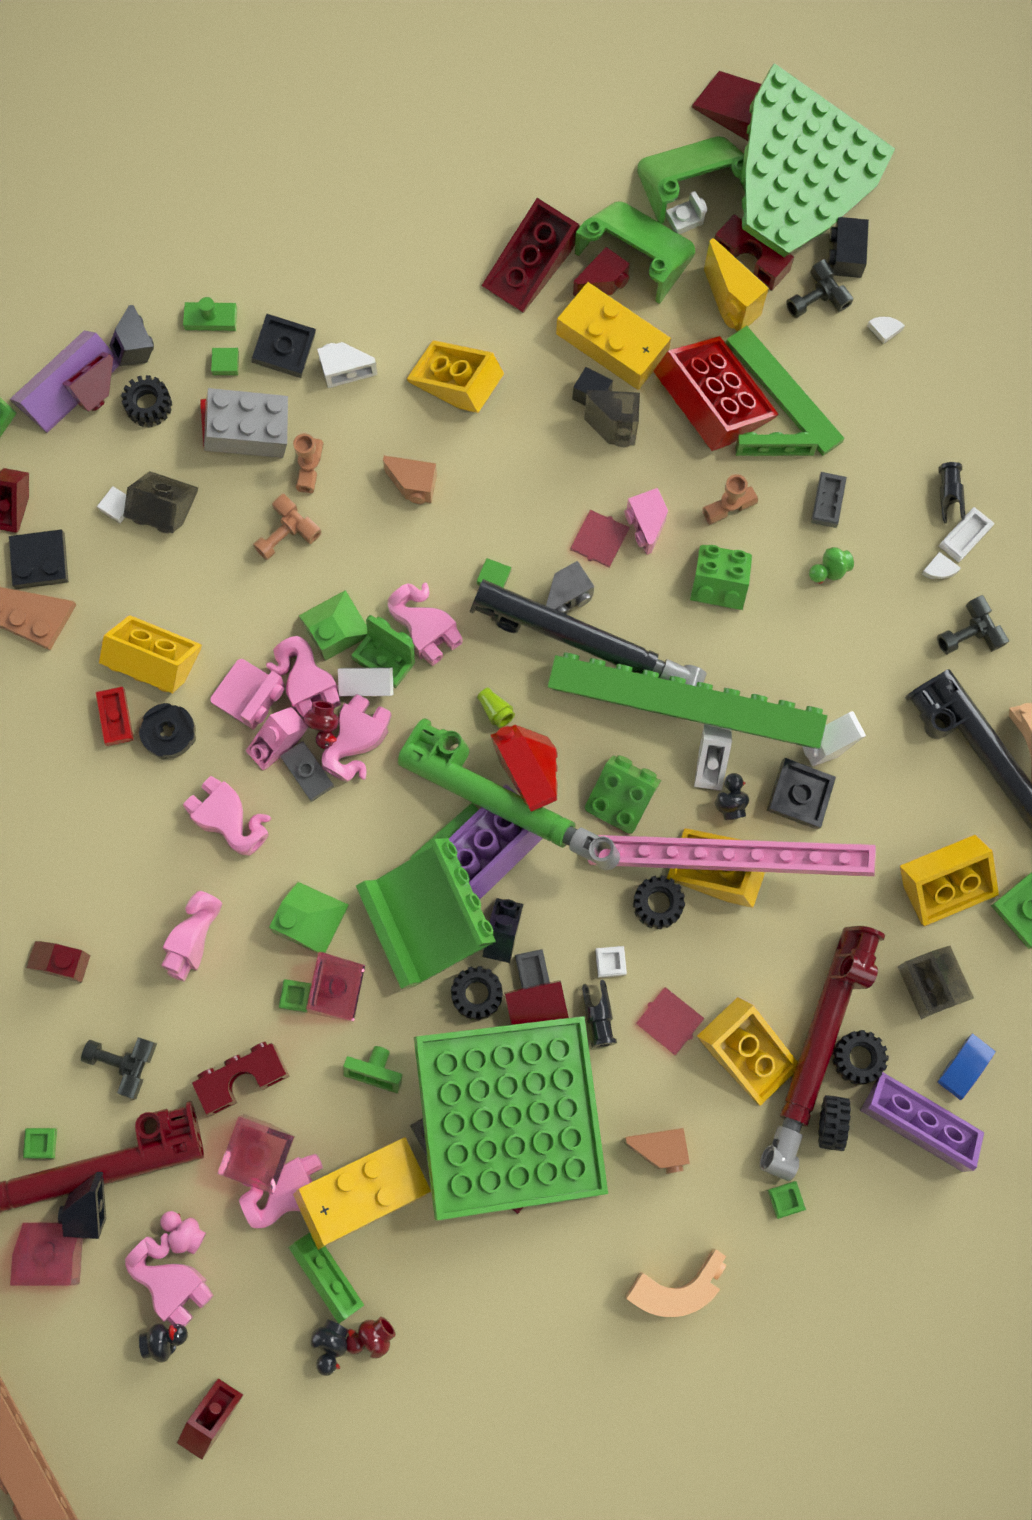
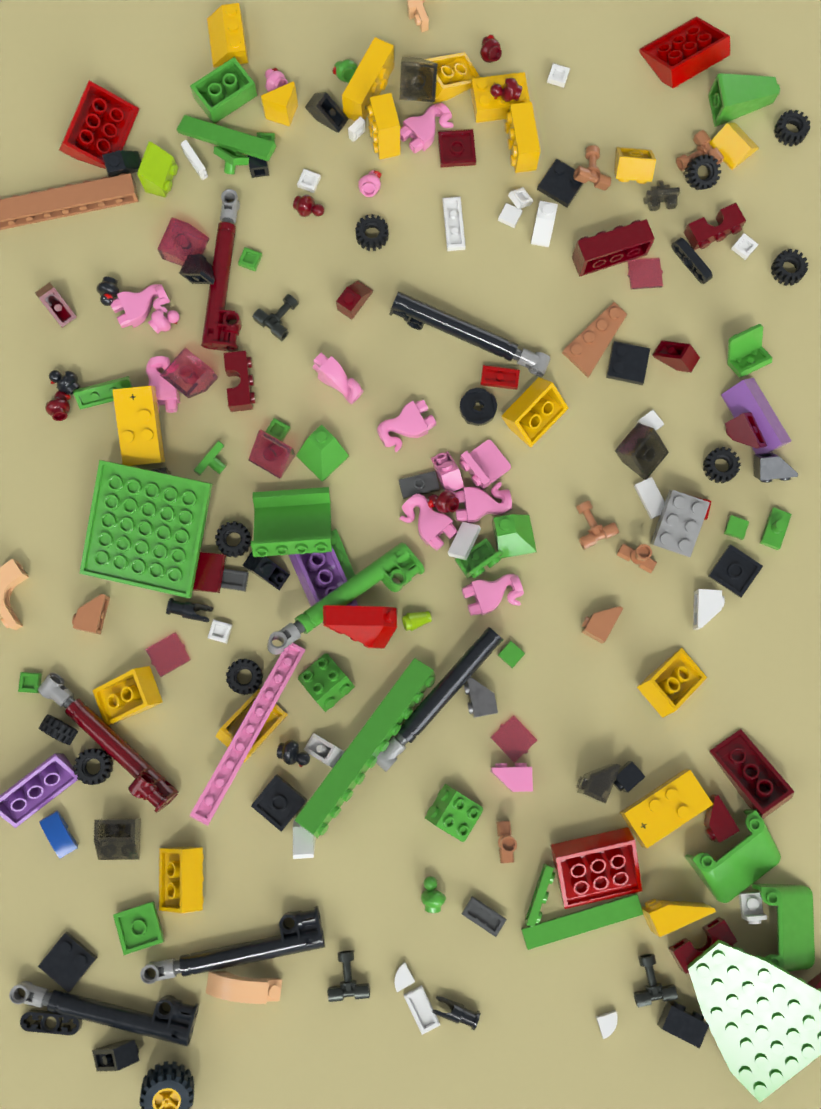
camera: 110 degrees right, 5 degrees up
(55, 851) = (419, 313): none -> black piece
(220, 473) = (650, 497): none -> white tile

